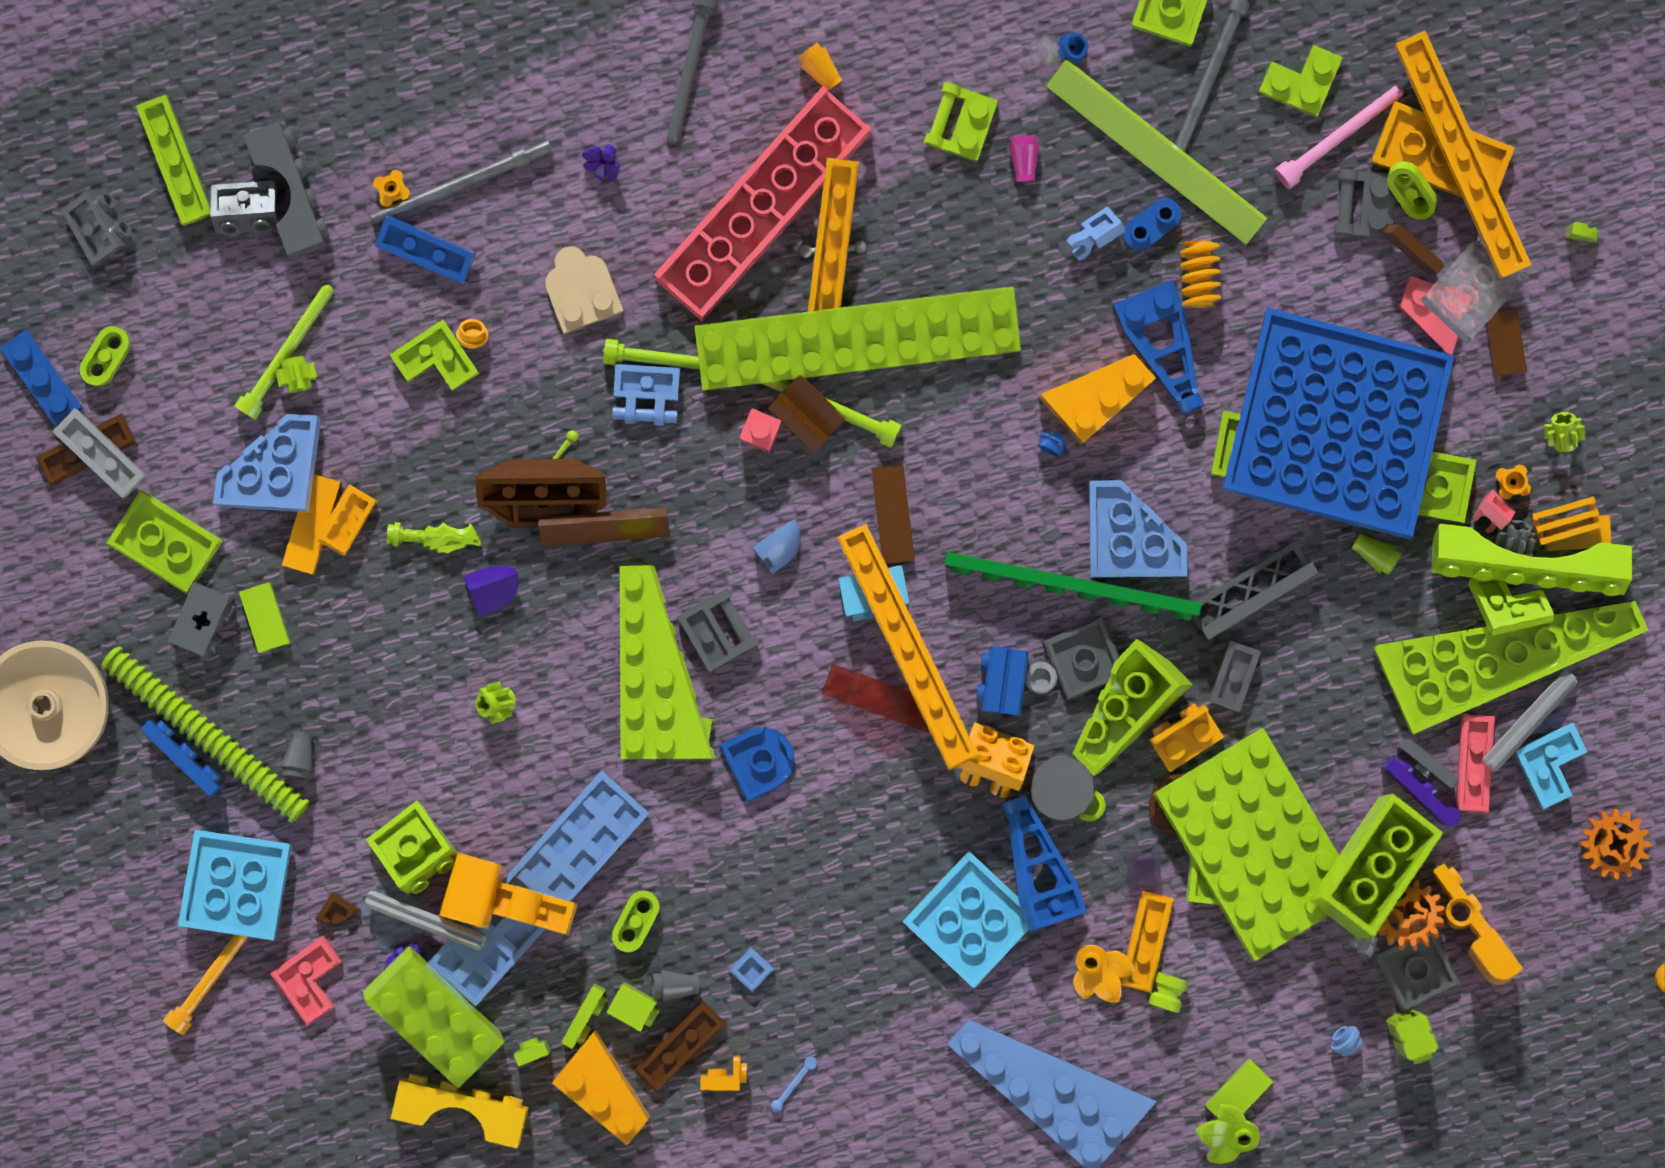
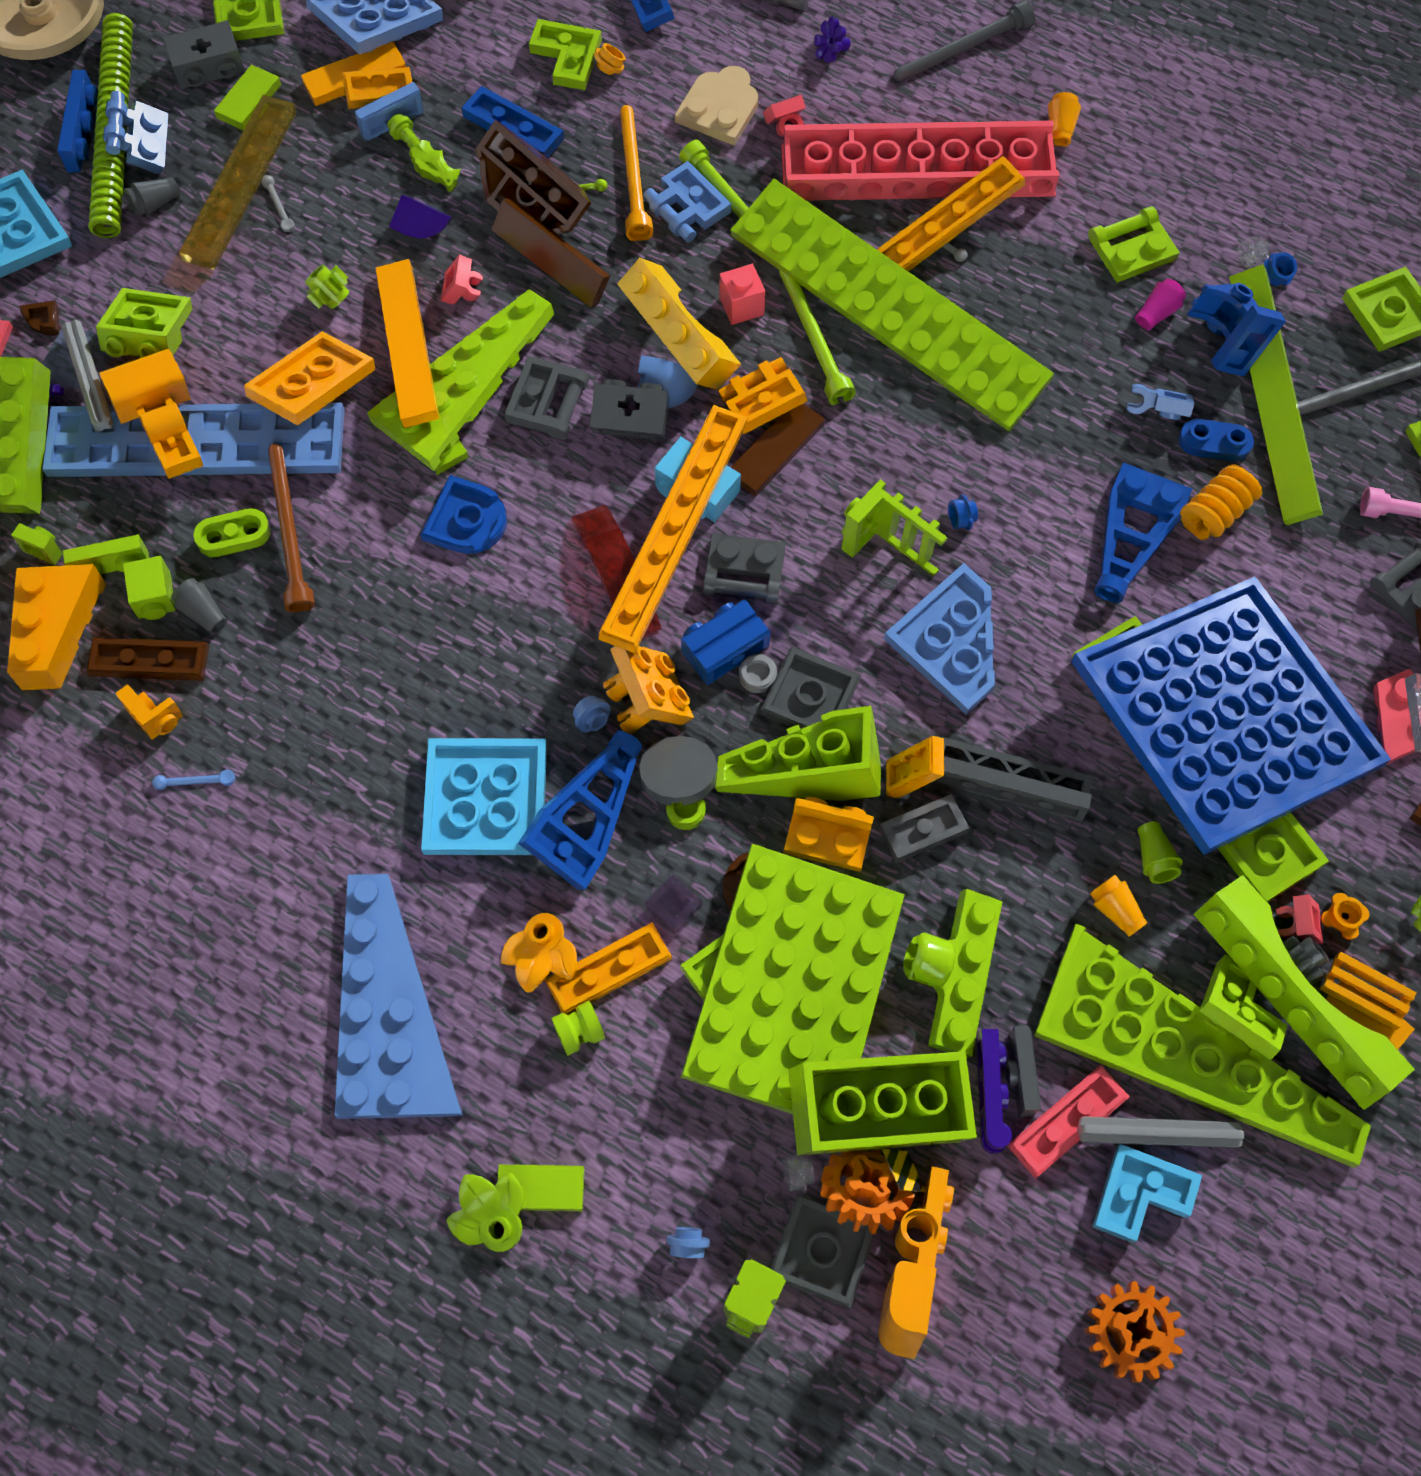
camera: 45 degrees right, 20 degrees down
(242, 720) = (146, 134): none -> medium blue plate
(341, 686) = (238, 182): none -> clear yellow plate
(376, 531) = (375, 116): none -> medium blue plate
(406, 681) = (286, 224): none -> light grey hinge
(465, 453) = (487, 106): none -> blue plate
(565, 776) = (309, 378): none -> light orange plate
(569, 609) = (458, 281): none -> coral tile
(594, 689) = (407, 344): none -> light orange tile
(632, 442) = (638, 223): none -> light orange piece
(634, 254) = (785, 111): none -> coral tile
(712, 494) = (694, 347): none -> yellow arch
(721, 916) = (298, 594): none -> dark orange piece
(751, 969) = (271, 659): medium blue tile -> none
(800, 585) = (645, 423): none -> dark grey brick
(807, 413) = (790, 315): reddish brown panel -> none
(858, 492) = (763, 393): none -> light orange plate
(954, 610) = (744, 558): none -> dark grey plate
(976, 807) = (591, 714): none -> medium blue plate
(1006, 521) = (880, 515): none -> lime plate
(1086, 589) = (870, 632): green plate -> none
(1093, 125) = (1244, 324): none -> blue tile
(1097, 397) = (1040, 509): light orange wedge -> none
(1197, 650) = (915, 767): none -> light orange plate
(1335, 741) = (957, 970): none -> lime plate
(1383, 609) = (1119, 905): none -> light orange cone
(1423, 888) = (903, 1170): none -> sticker

